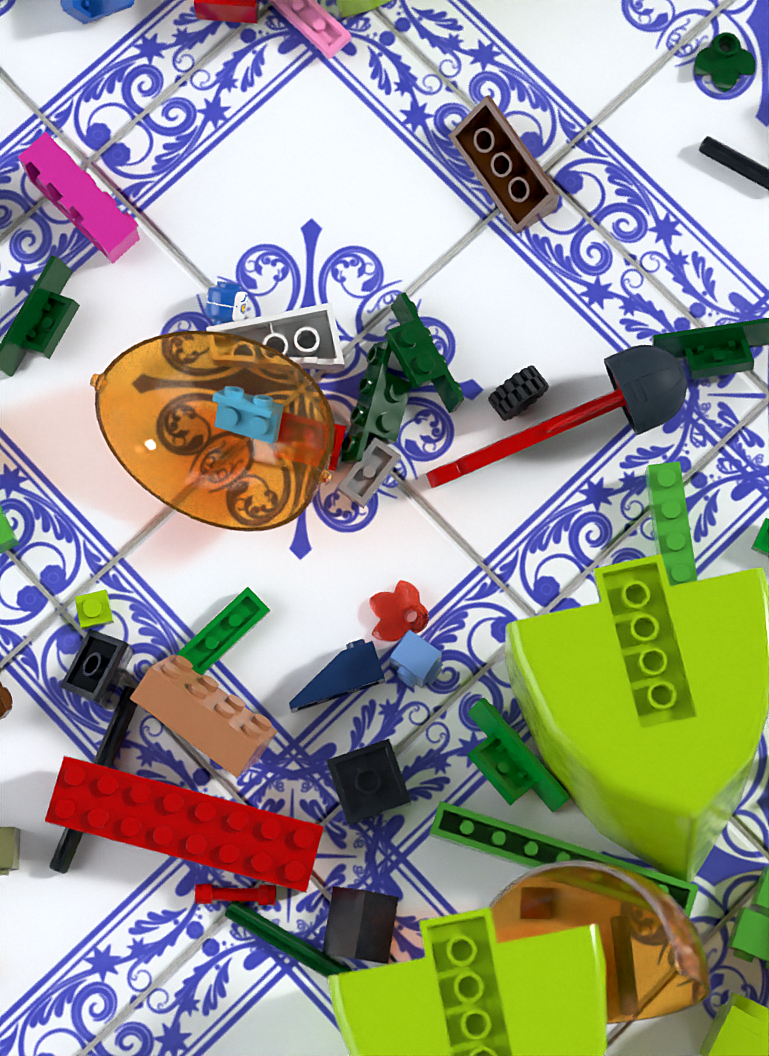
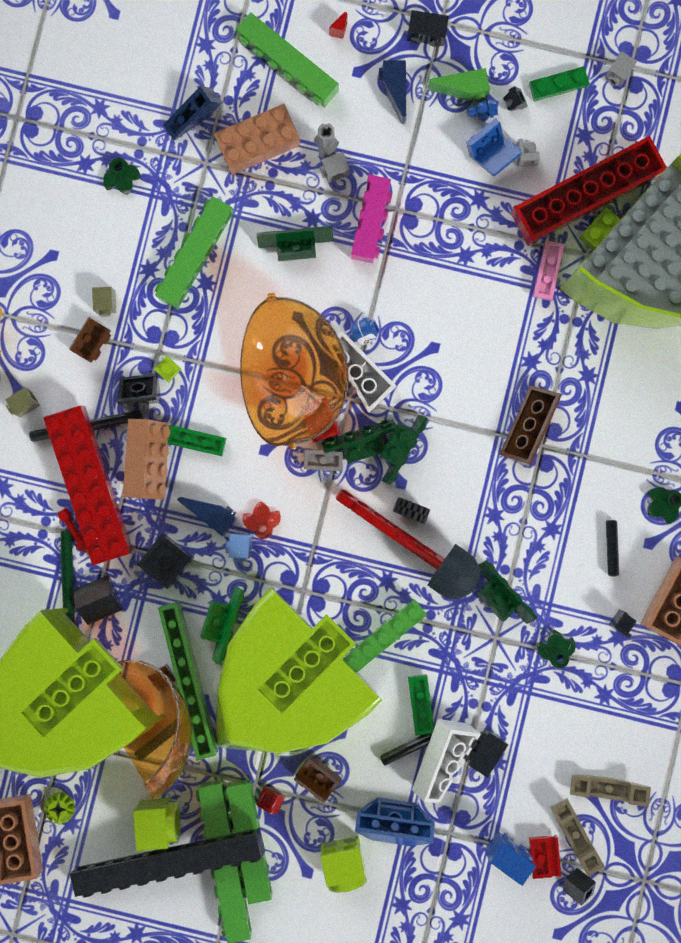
camera: 55 degrees right, 10 degrees up
(248, 414) = (311, 381): medium azure bracket -> none

